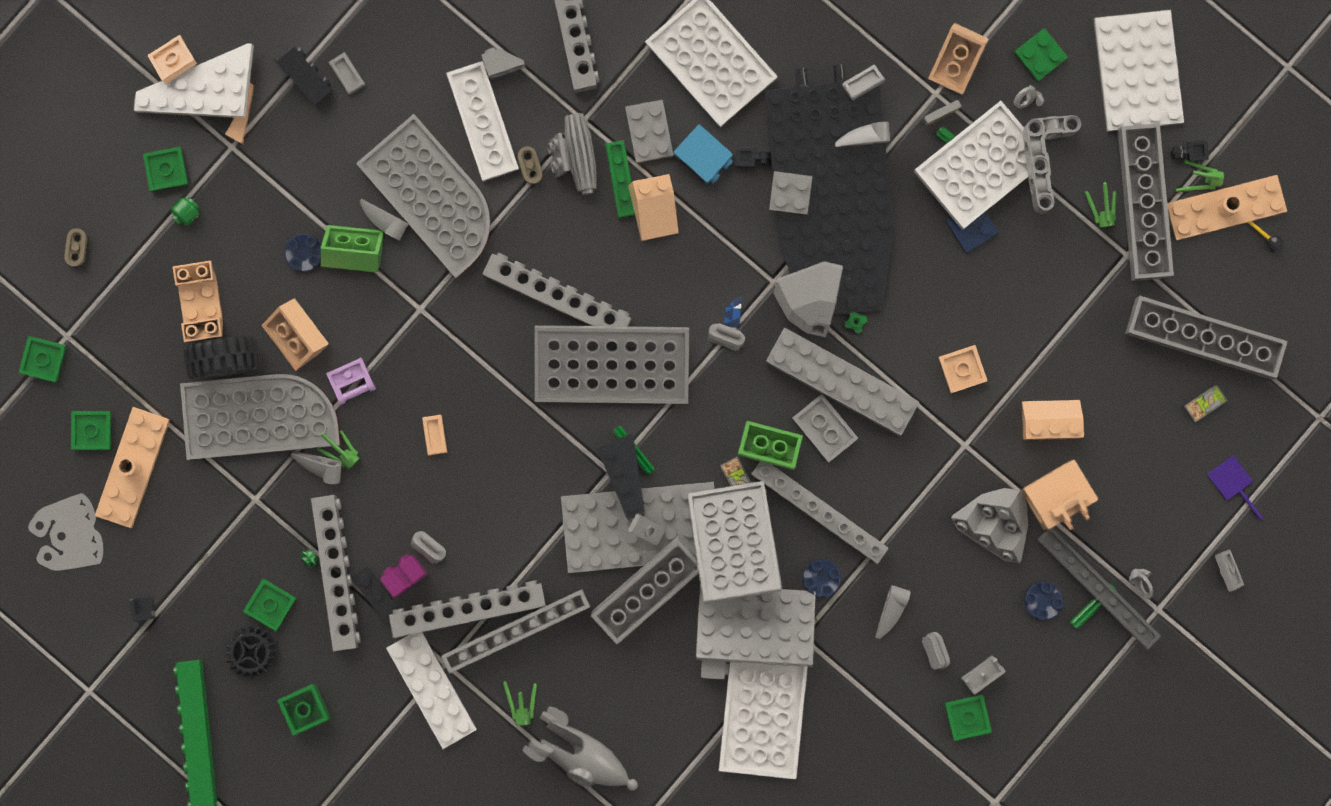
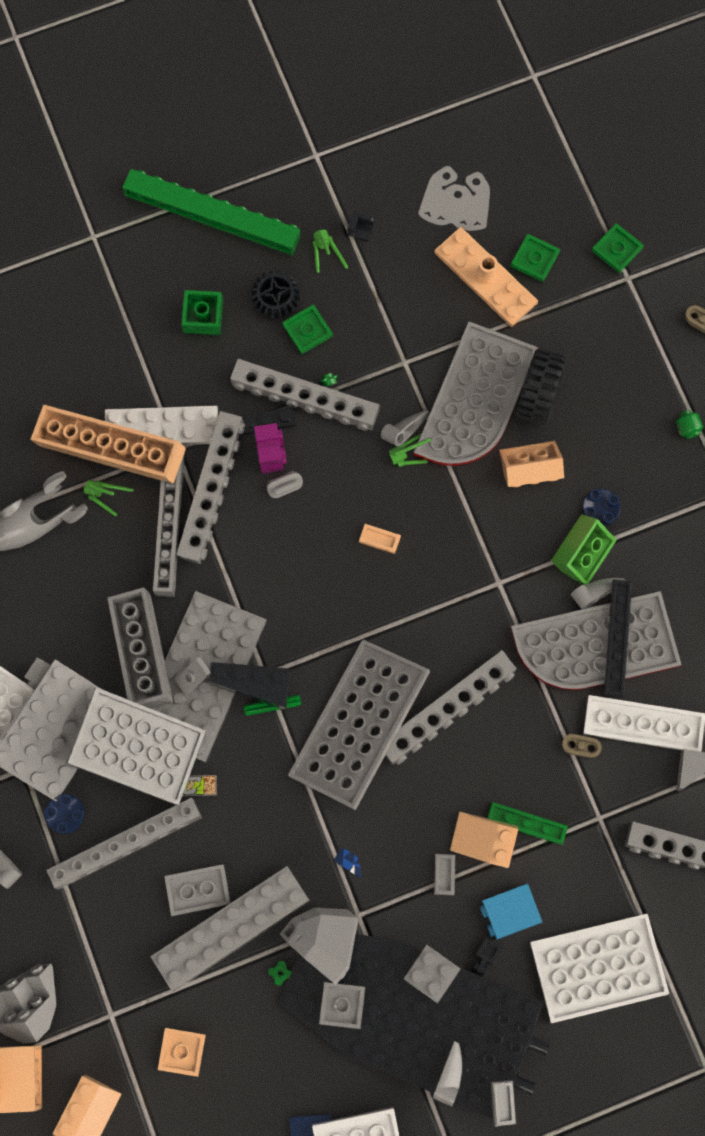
camera: 115 degrees right, 10 degrees down
(174, 636) = (323, 241): none -> bright green plant
(199, 301) = (601, 398): light nougat slope -> none
(347, 375) = (471, 490): lavender plate -> none
(418, 179) = (618, 638): none -> black tile
(476, 722) = (108, 443): none -> light nougat brick
(574, 154) = (571, 792): light grey plate -> none
(649, 131) = (559, 873): light grey plate -> none
(701, 227) = (444, 874): none -> light grey tile
(726, 336) = (330, 844): light grey piece -> none
(770, 445) = (207, 827): bright green slope -> none
(855, 254) = (342, 1005): none -> light grey plate

